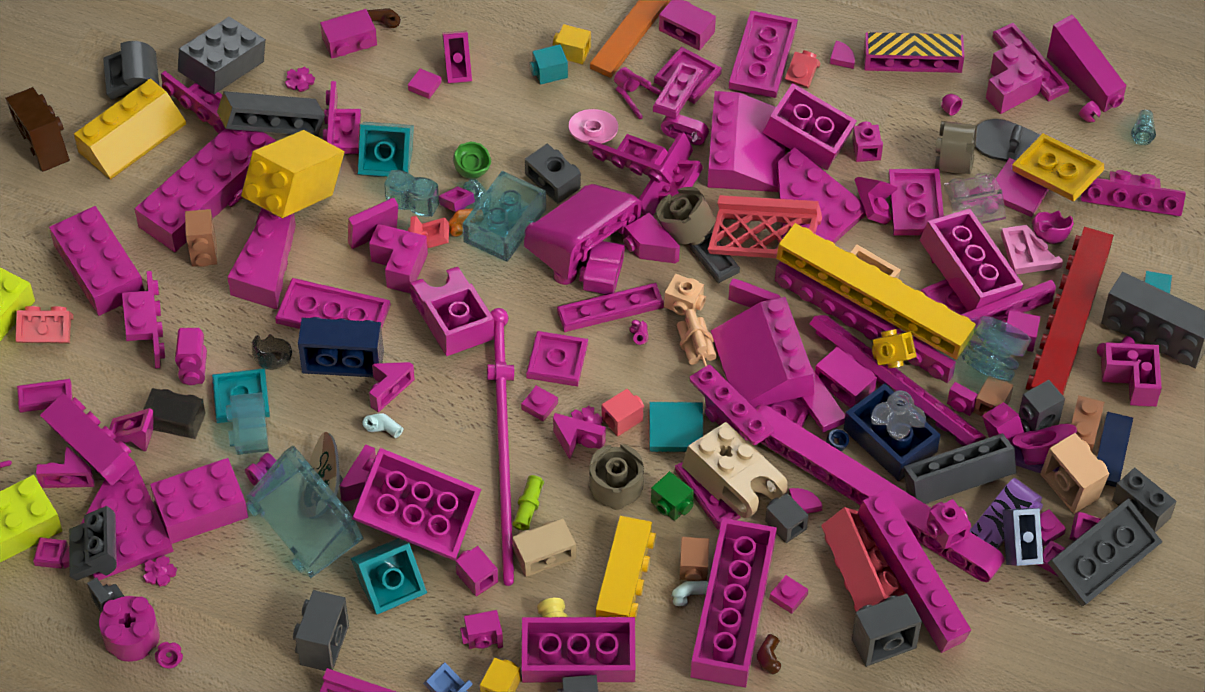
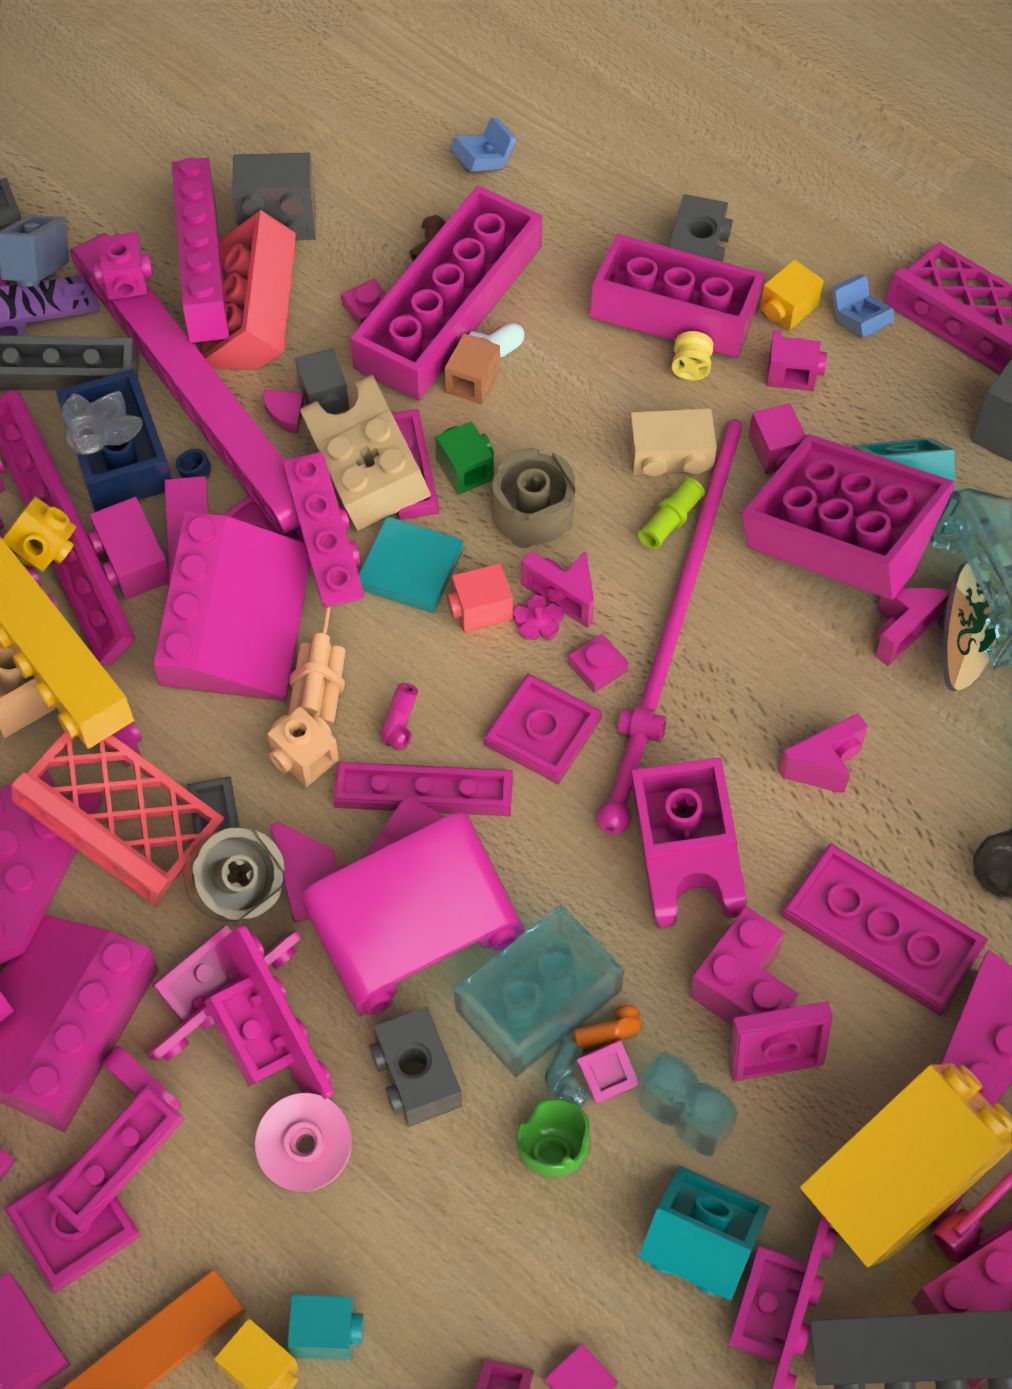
camera: 160 degrees left, 5 degrees up
(340, 346) = (894, 817): dark blue brick -> none
(382, 422) = (849, 704): light aqua arm -> none
(435, 231) = (679, 1014): coral bracket -> none
(625, 568) = (573, 380): yellow brick -> none
(630, 81) = (191, 1237): dark pink plant -> none
(748, 294) = (193, 718): dark pink tile -> none

